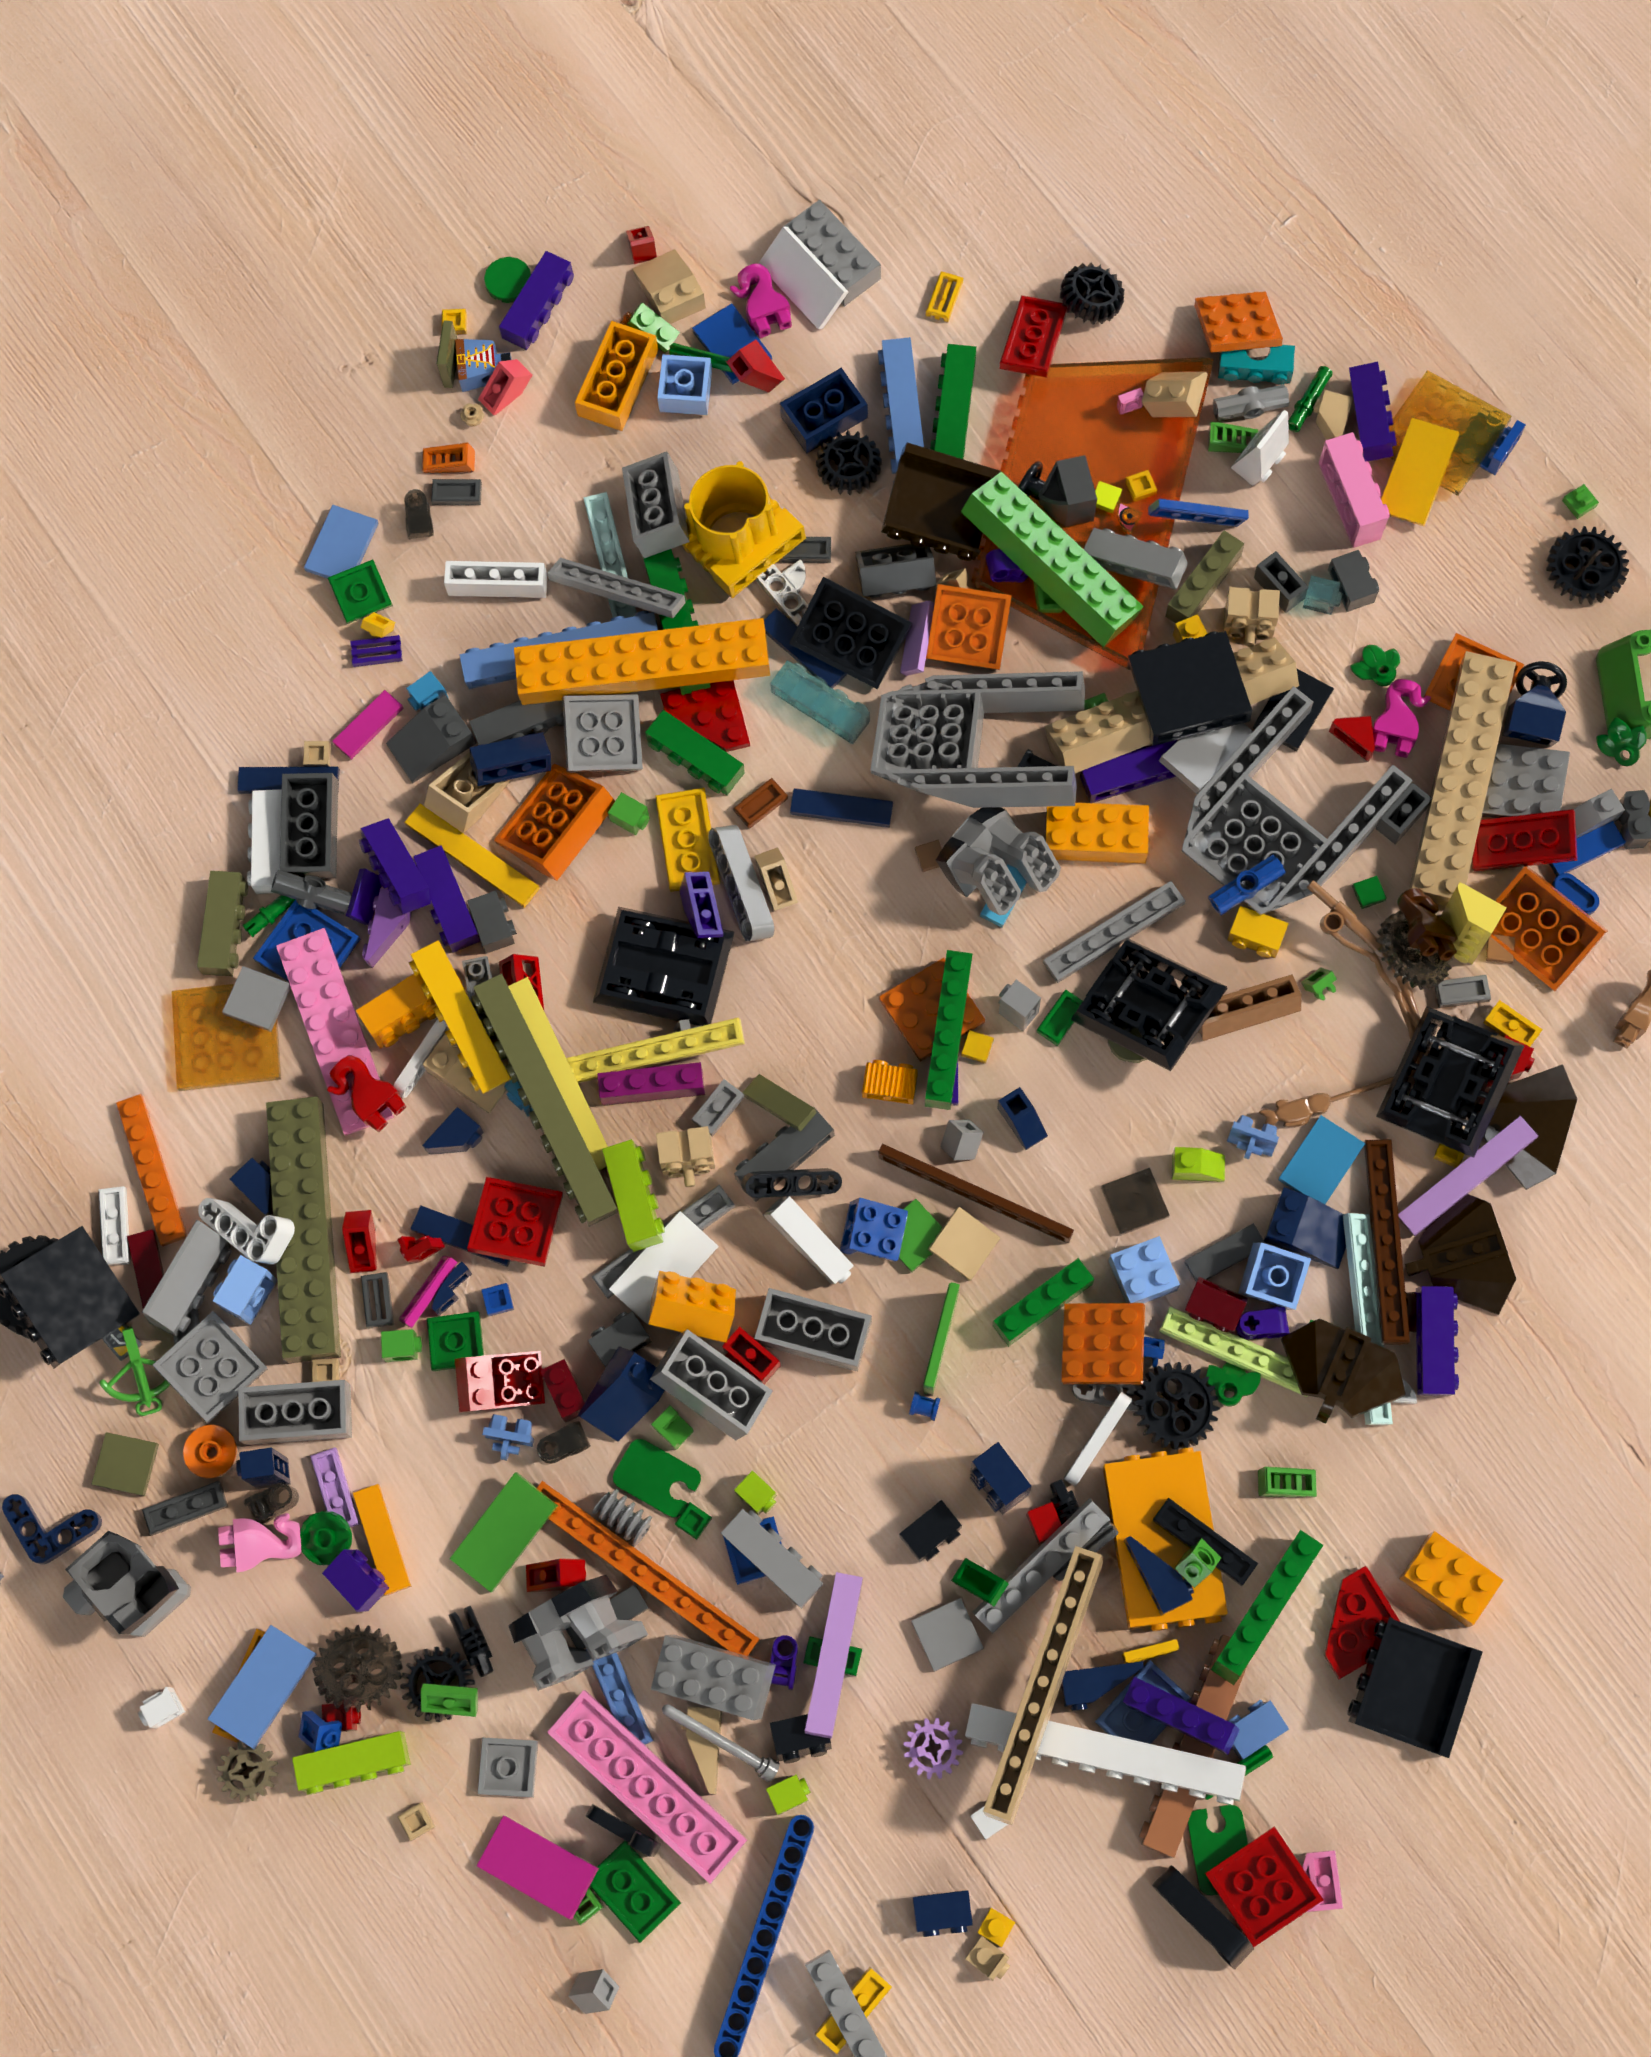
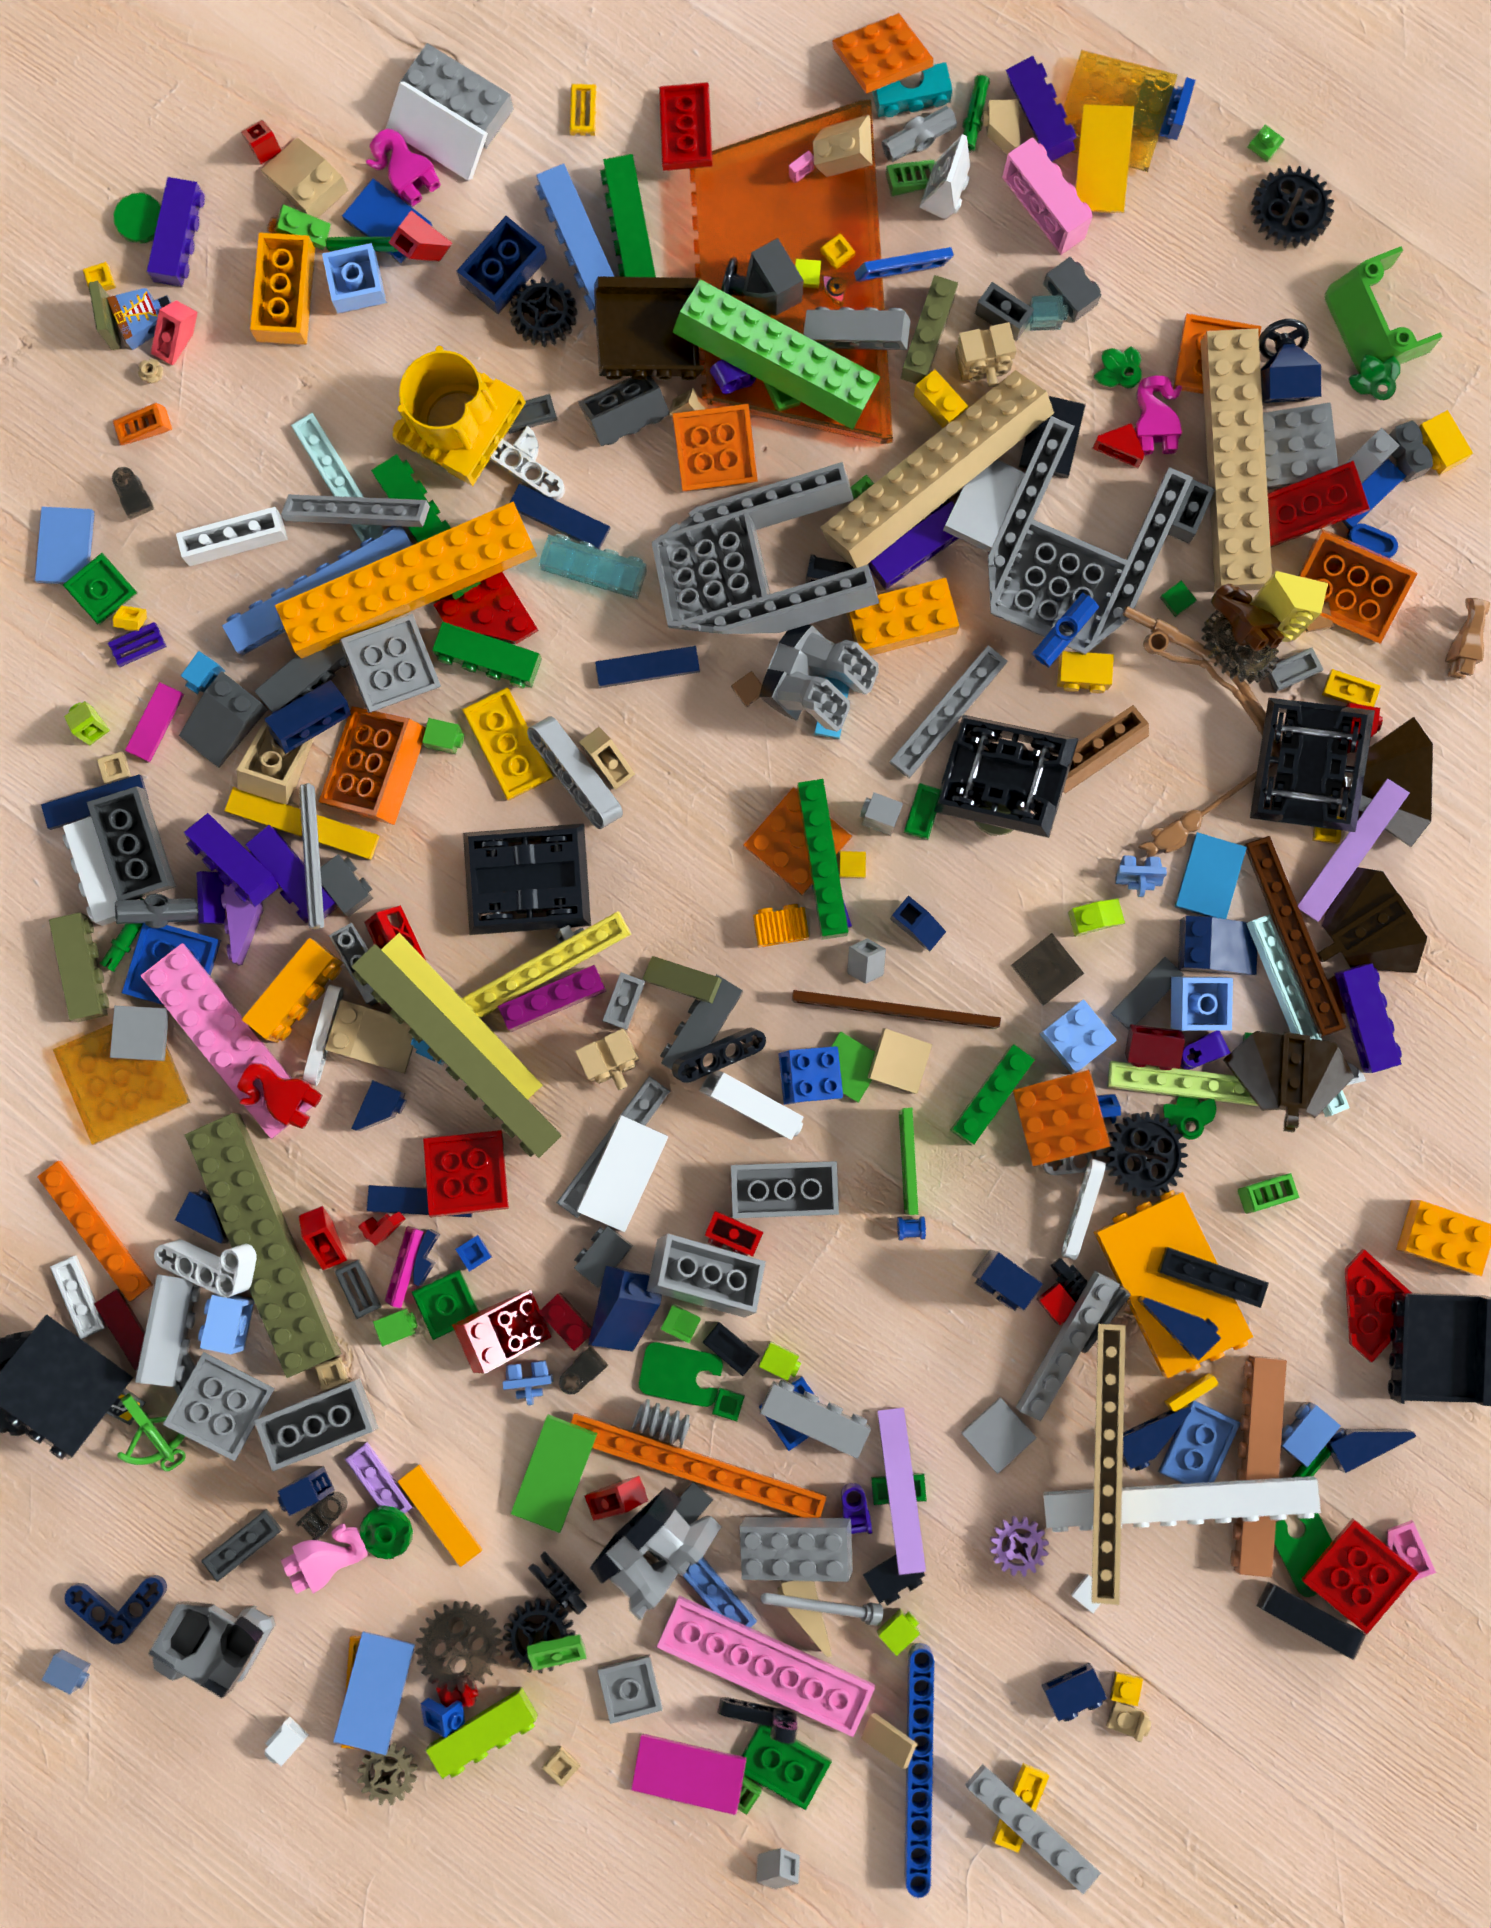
camera: 20 degrees left, 10 degrees up
(125, 1464) = (169, 1522): olive tile -> none
(198, 1446) = (236, 1493): orange dish -> none
(306, 706) = (86, 723): none -> lime slope
(356, 1579) = (429, 1564): dark purple brick -> none
(456, 491) = (161, 456): dark grey tile -> none
(460, 1017) = (346, 995): yellow brick -> none
(470, 885) = (311, 856): none -> light grey axle
(633, 1195) = (572, 1115): lime brick -> none
(655, 504) = (366, 413): light grey brick -> none
(692, 1305) = (664, 1206): light orange brick -> none
(700, 904) = (544, 808): dark purple slope -> none
(713, 1468) = (731, 1349): none -> black tile
(743, 1897) = (889, 1741): none -> tan tile
(760, 803) = (567, 685): dark orange tile -> none
(850, 633) = (601, 487): black slope -> none
(917, 638) = (668, 473): lavender tile -> none
(931, 1531) = (954, 1345): black brick -> none
(979, 1582) = (1015, 1379): green tile -> none
(1092, 293) = (744, 68): black gear -> none
(1181, 1715) = (1241, 1448): dark purple brick -> none
(1190, 687) = (952, 447): black panel -> none
(1198, 1563) = (1215, 1302): bright green brick -> none
(1266, 1607) = (1288, 1321): green brick -> none
(1304, 1757) = (1358, 1446): none -> dark blue slope
(1318, 981) = (1157, 702): bright green tile -> none

